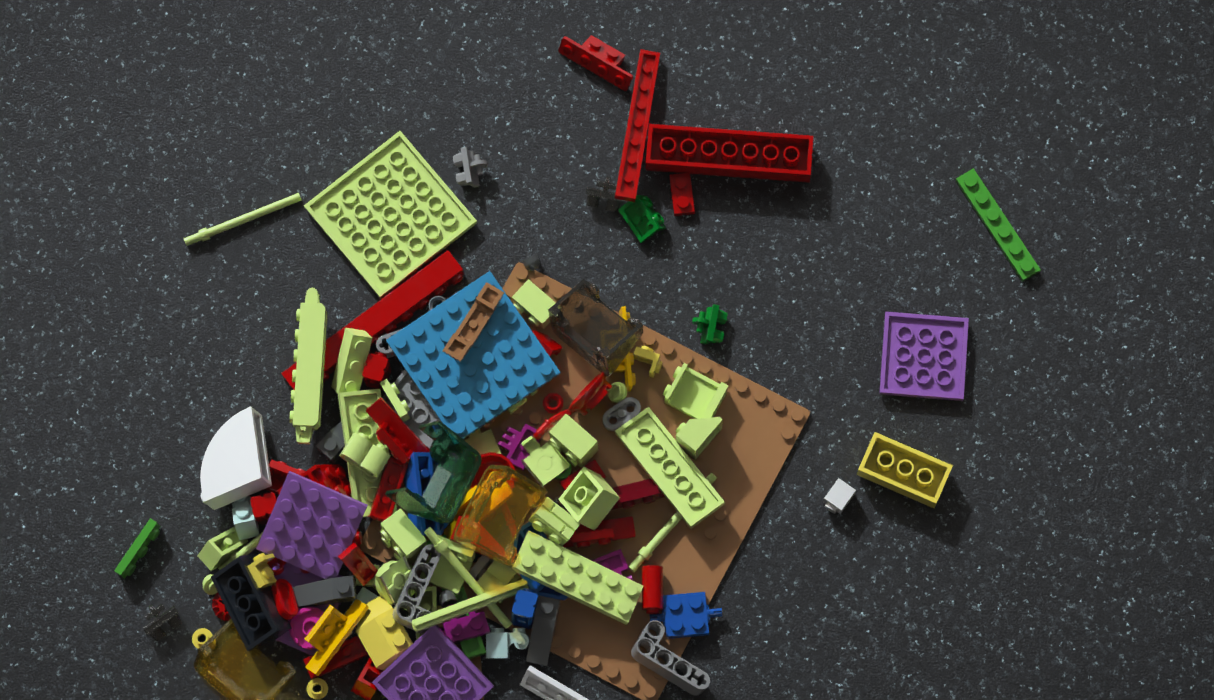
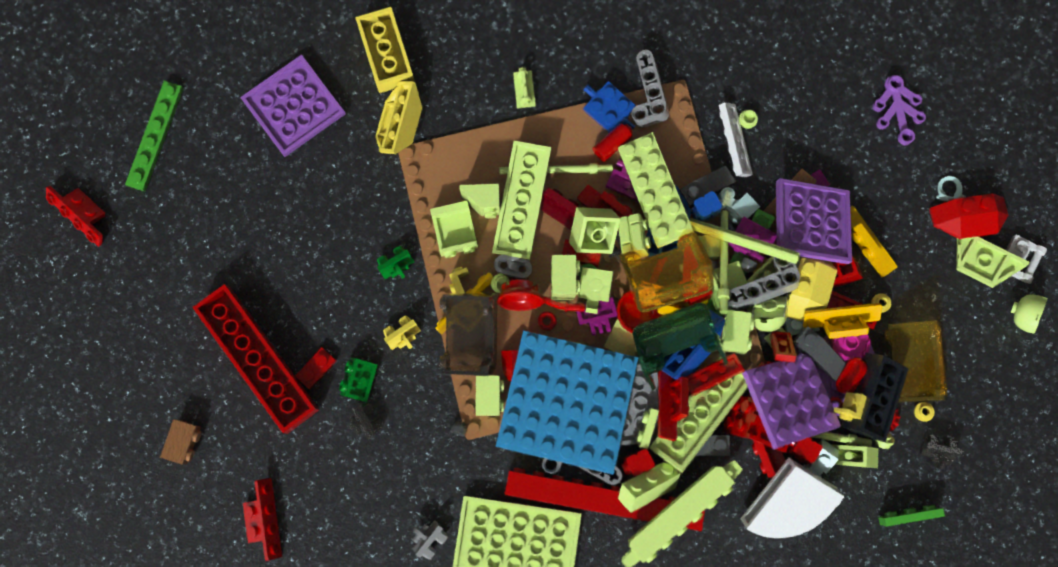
camera: 140 degrees left, 5 degrees up
(365, 455) = (708, 410): yellowish green brick -> none
(474, 322) = (546, 419): medium nougat slope -> none
(637, 125) = (290, 443): red plate -> none
(644, 279) = (403, 335): none -> light yellow hips
(715, 46) = (181, 442): none -> medium nougat brick
(767, 560) = (524, 88): none -> yellowish green hinge
(830, 428) = (399, 118): none -> light yellow wedge
(838, 497) = (440, 78): white brick -> none
(981, 117) = (79, 210): none -> red bracket

